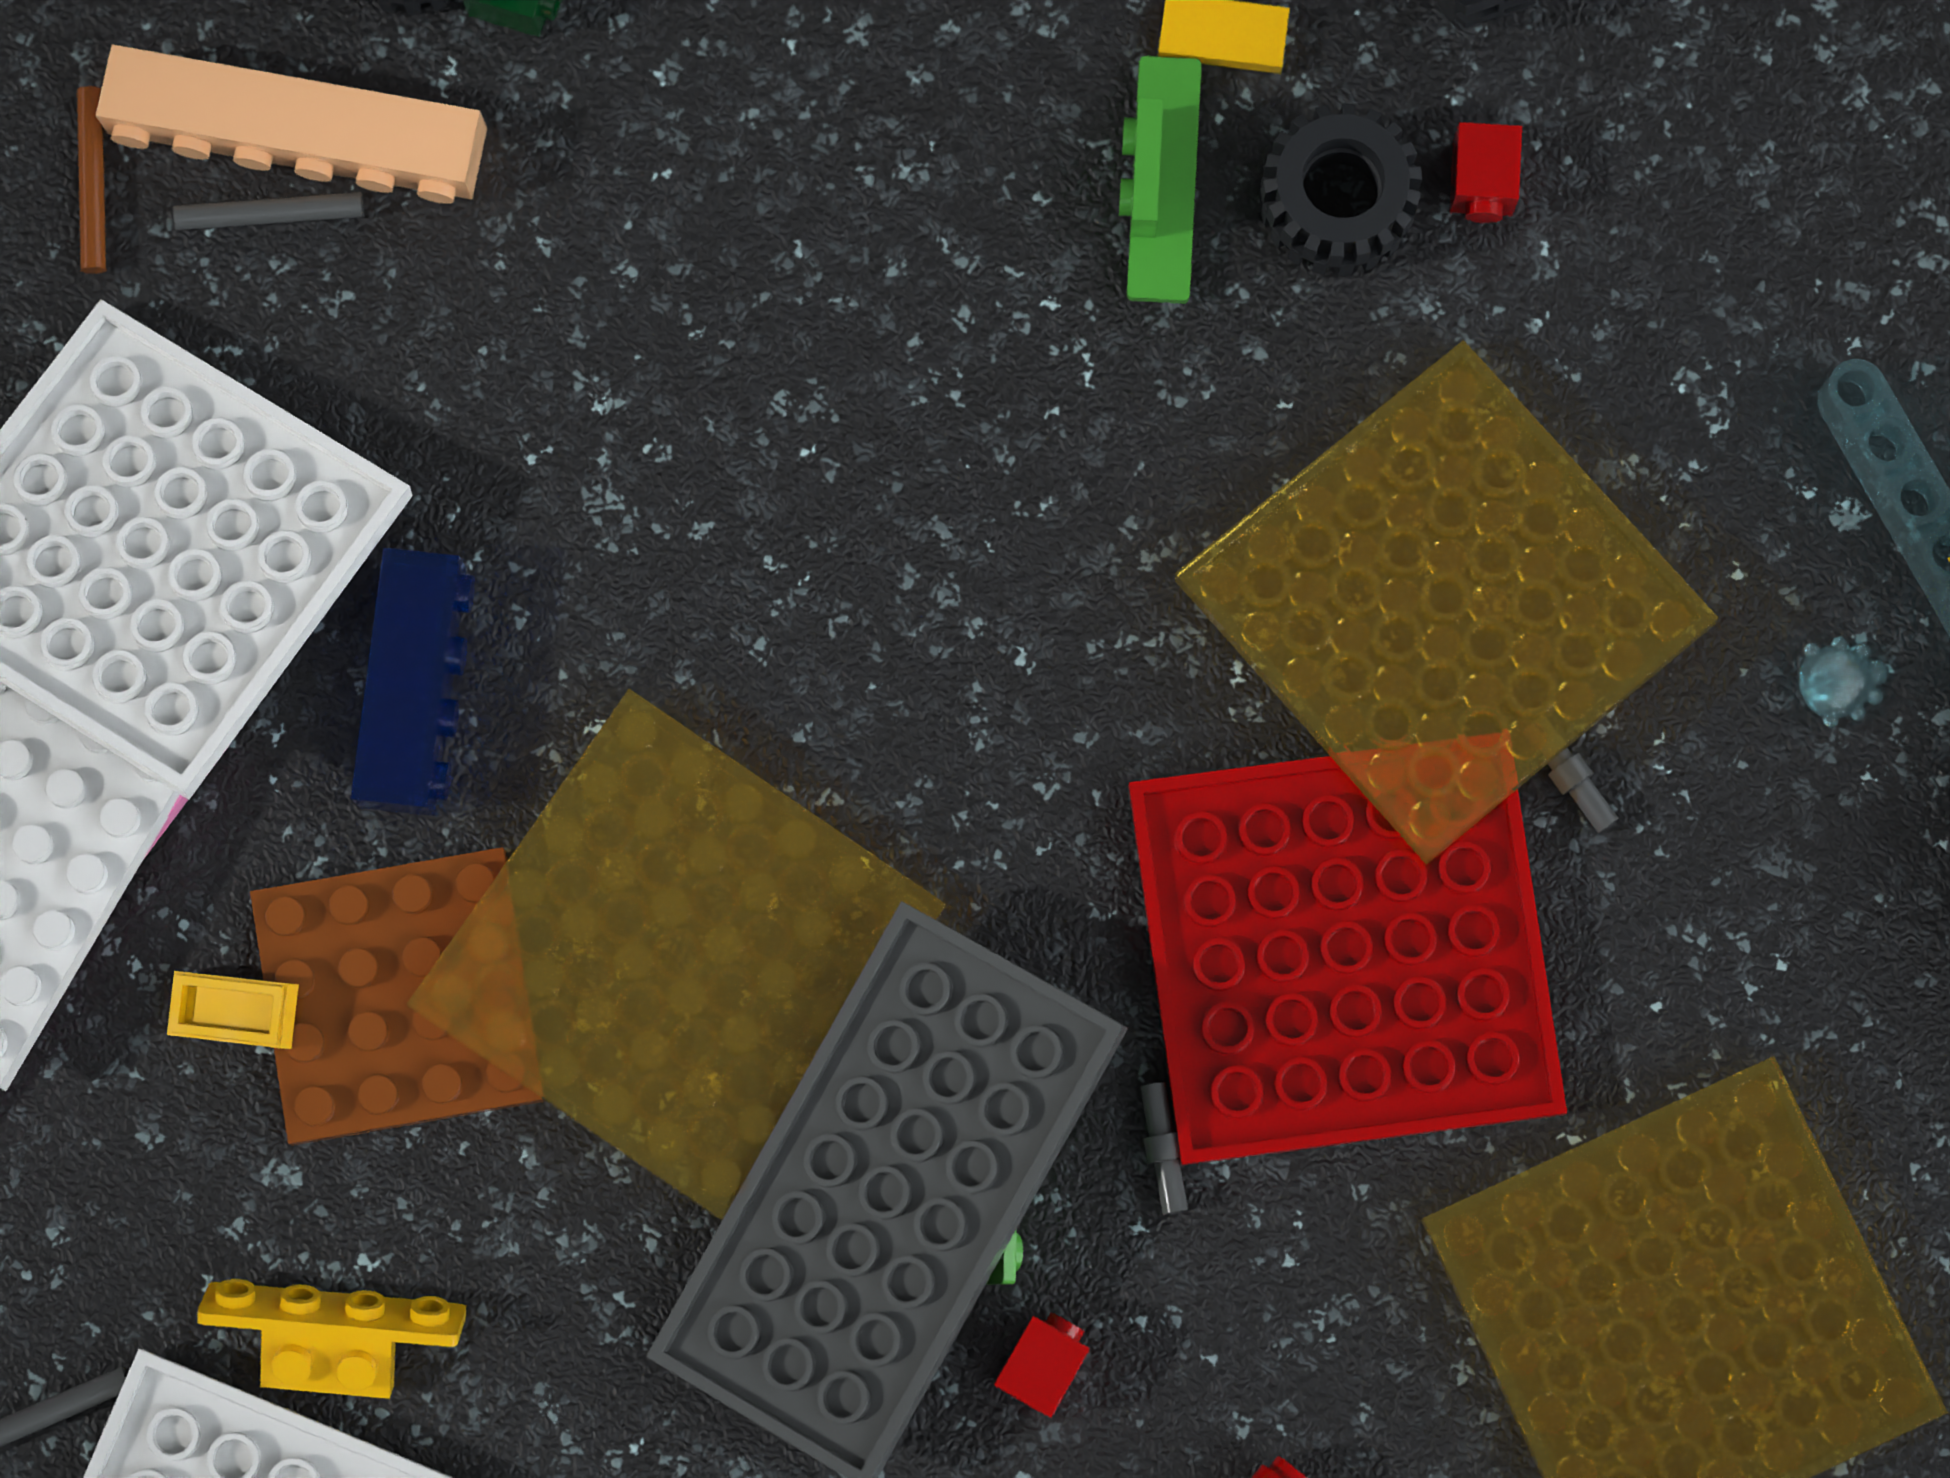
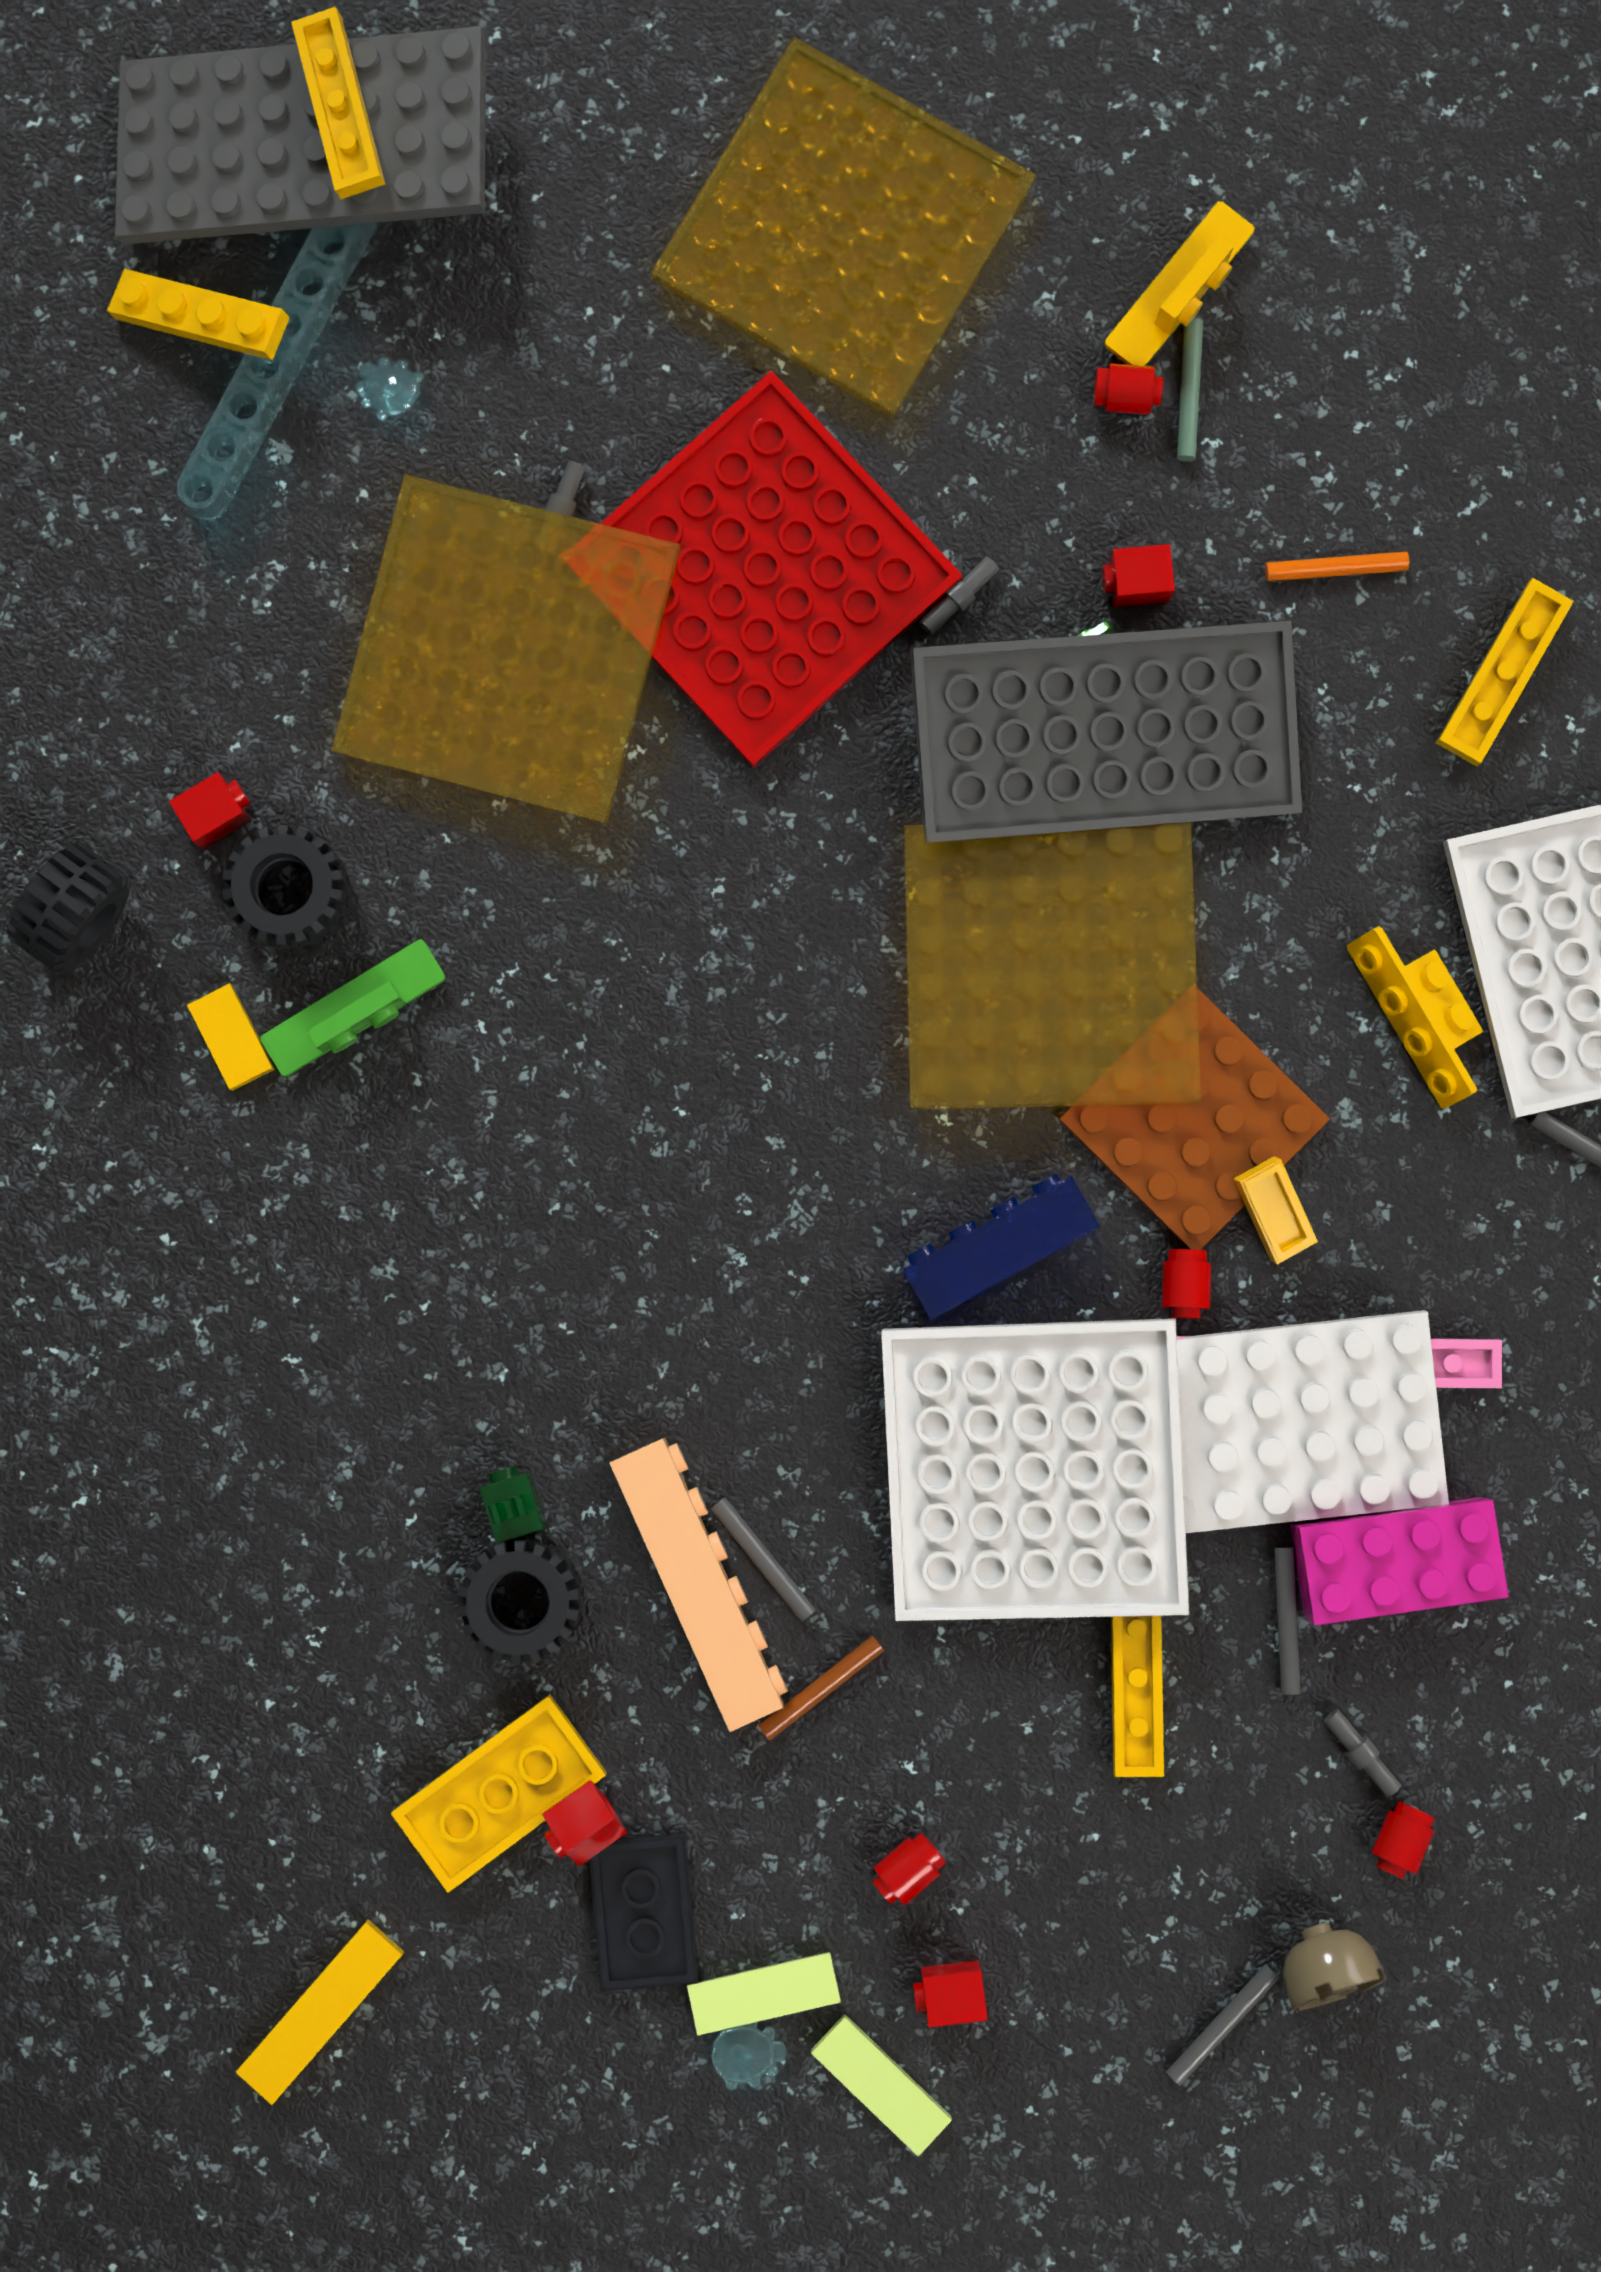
camera: 125 degrees left, 5 degrees up
(225, 856) = (1186, 1283): none -> red brick

